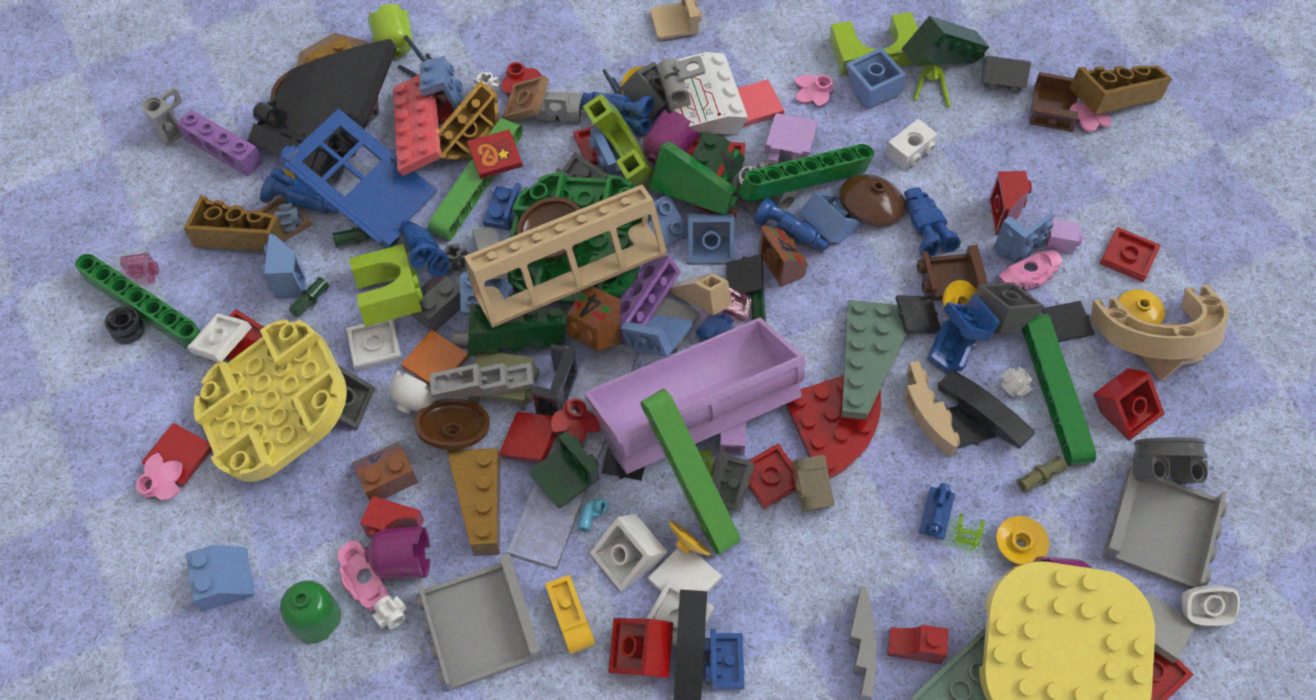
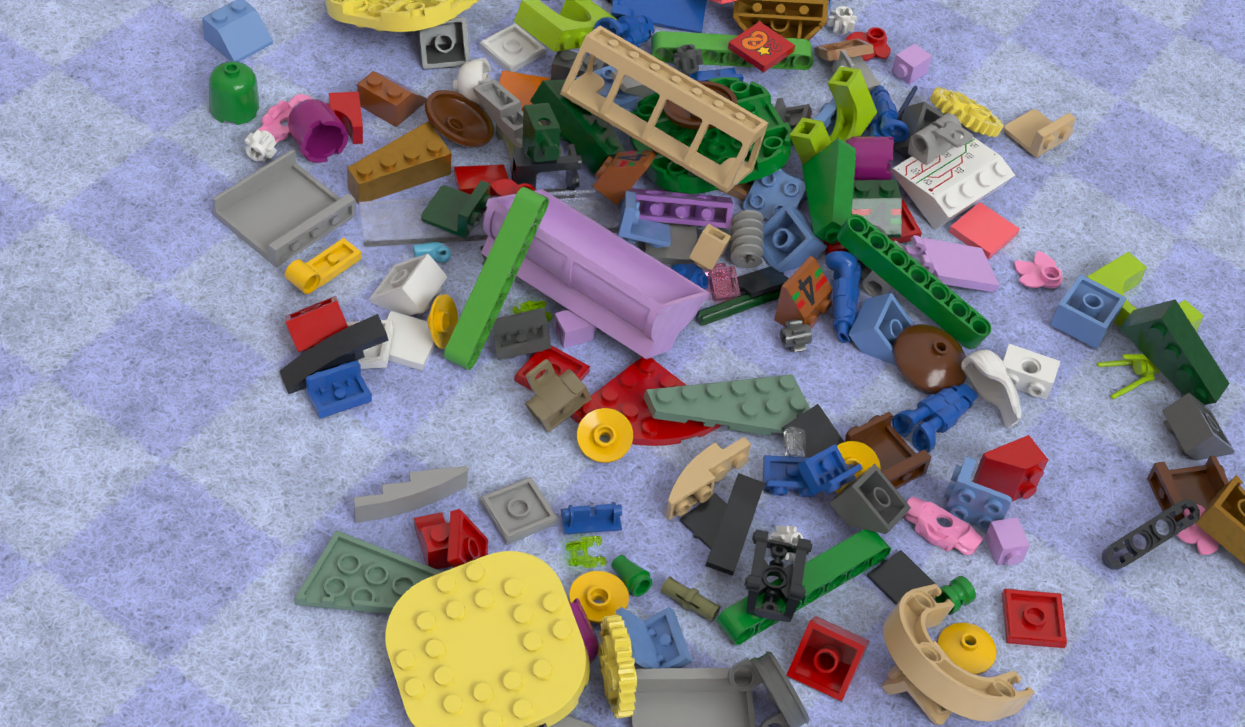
camera: 55 degrees right, 10 degrees down
(475, 213) = (688, 59): none -> dark grey gear
(541, 363) = (538, 140): none -> dark green torso
(561, 62) = (911, 63): none -> lavender brick
(641, 51) = (970, 114): none -> light yellow gear
(696, 262) = (747, 239): none -> light grey piece
(813, 278) = (795, 335): none -> dark grey gear
(869, 458) = (608, 423): none -> yellow dish
(906, 565) = (518, 510): none -> light grey tile
(916, 169) = (993, 384): none -> white hair
(926, 331) = (795, 442): none -> clear slope
(950, 622) = (465, 540): none -> red tile
(1006, 507) = (633, 576): none -> green cone
(1072, 392) = (792, 576): none -> black piece
(1083, 517) = (657, 640): none -> medium blue bracket
(1088, 121) = (1149, 532): none -> black beam
(1099, 289) = (959, 591): none -> green wheel
(1119, 554) = (617, 666): none -> light yellow gear

